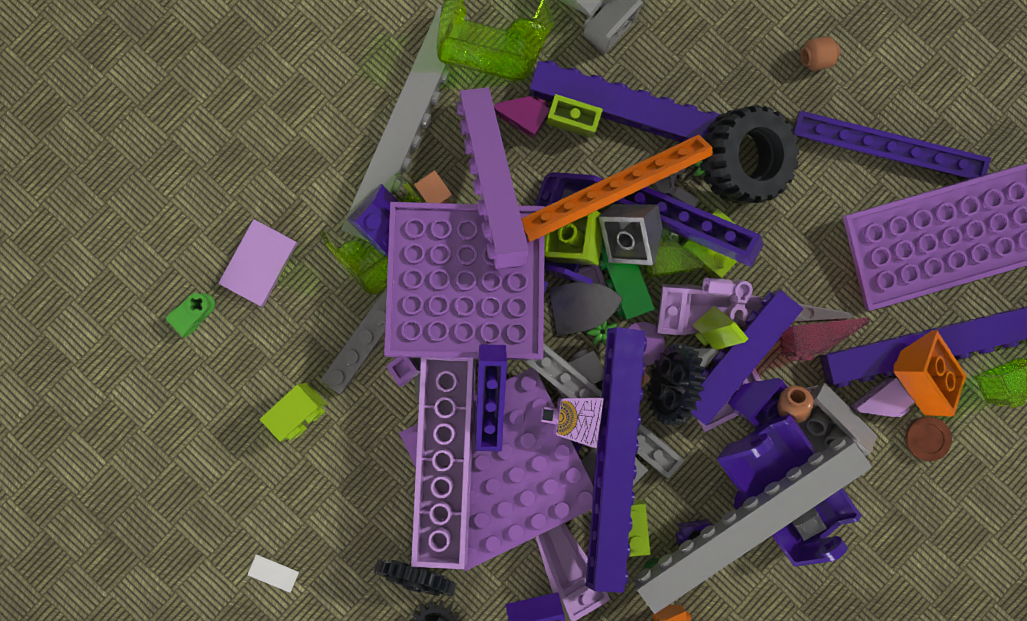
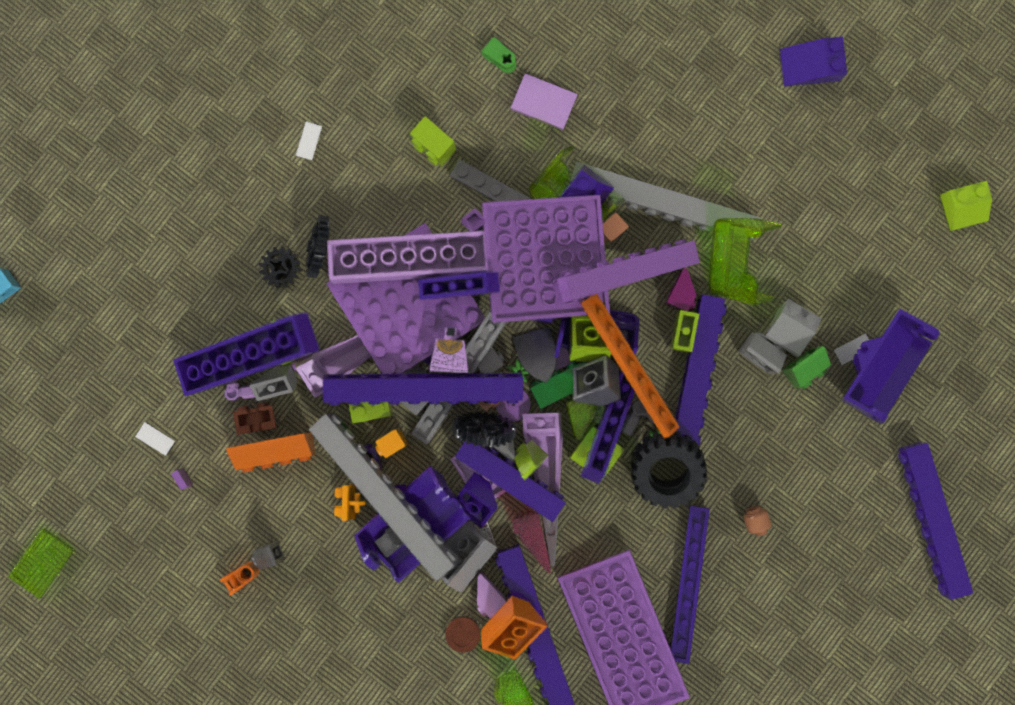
camera: 85 degrees right, 0 degrees up
(680, 505) = (391, 443): none -> light orange brick
(737, 290) = (562, 471): lavender bar -> none
(752, 567) = (350, 502): none -> light orange hips
(796, 402) = (479, 523): nougat head -> none

